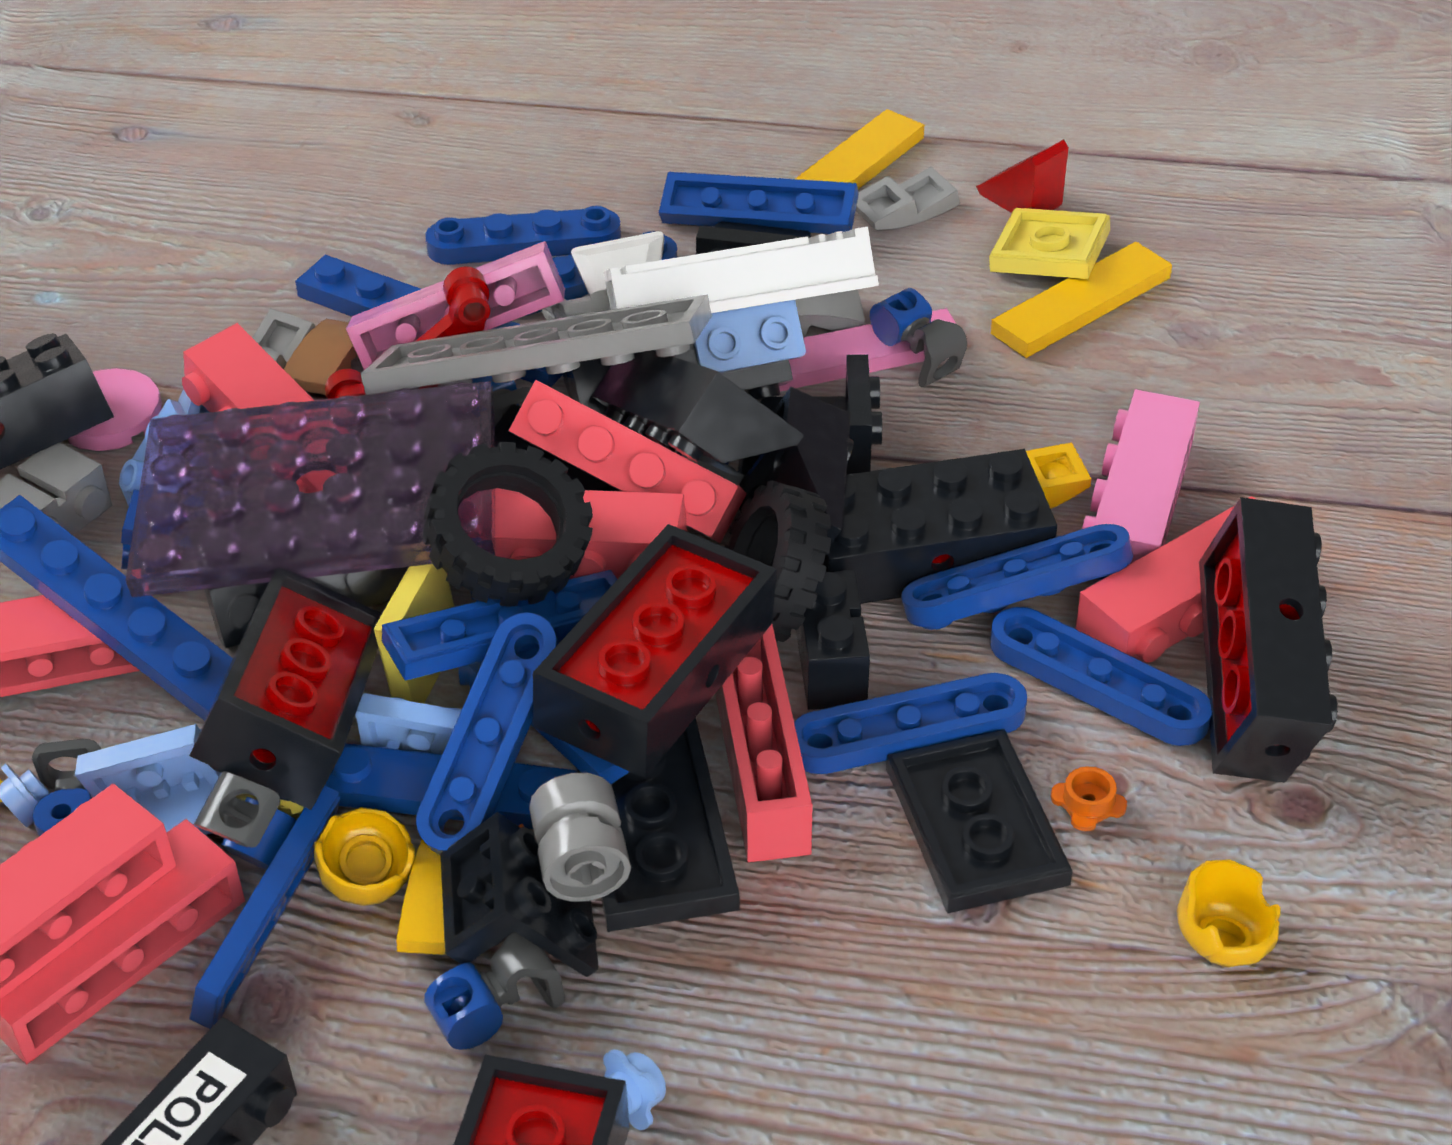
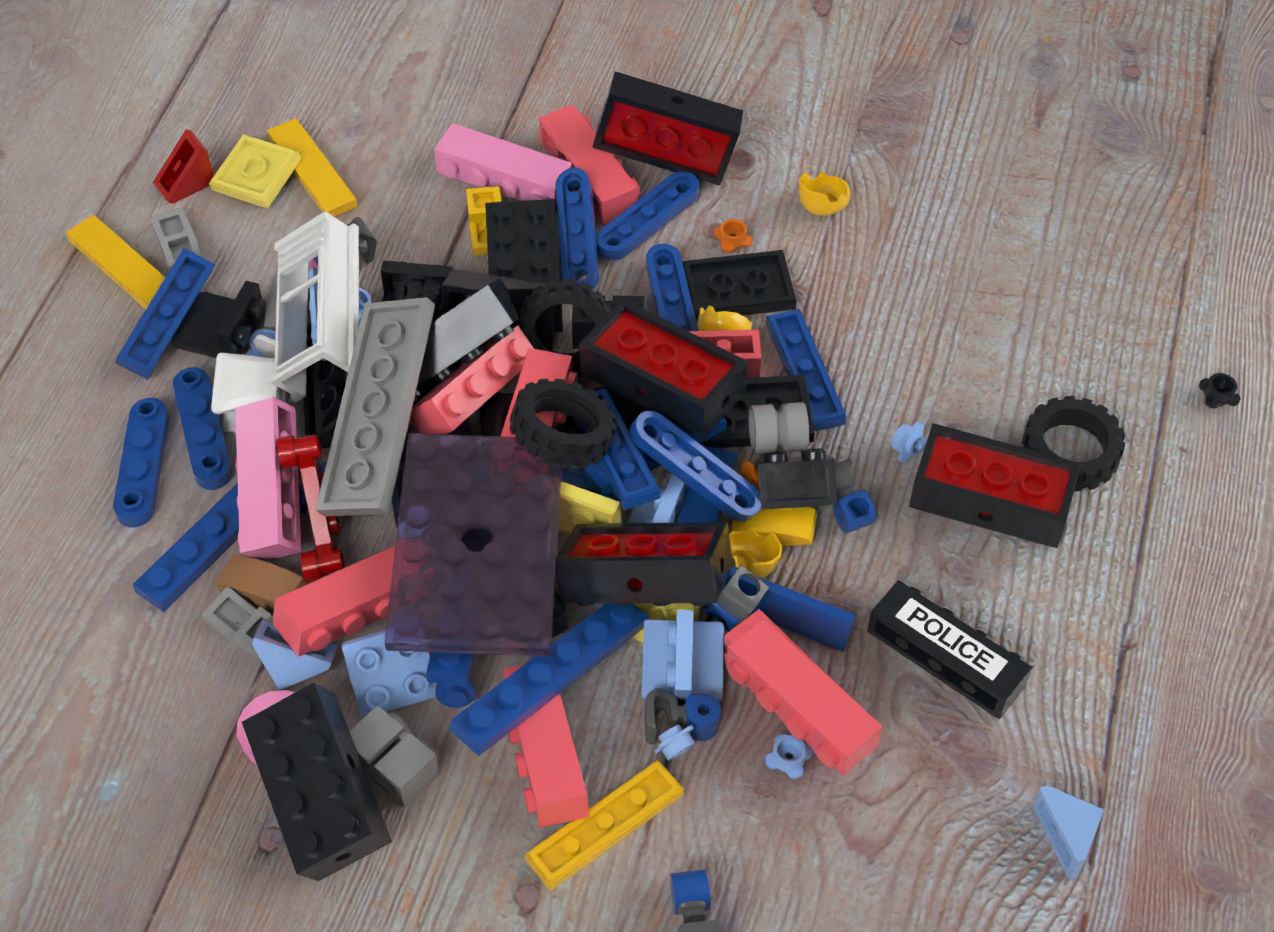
camera: 85 degrees left, 10 degrees up
(794, 929) = (801, 357): none -> blue tile
(851, 785) = (721, 321): none -> yellow hair

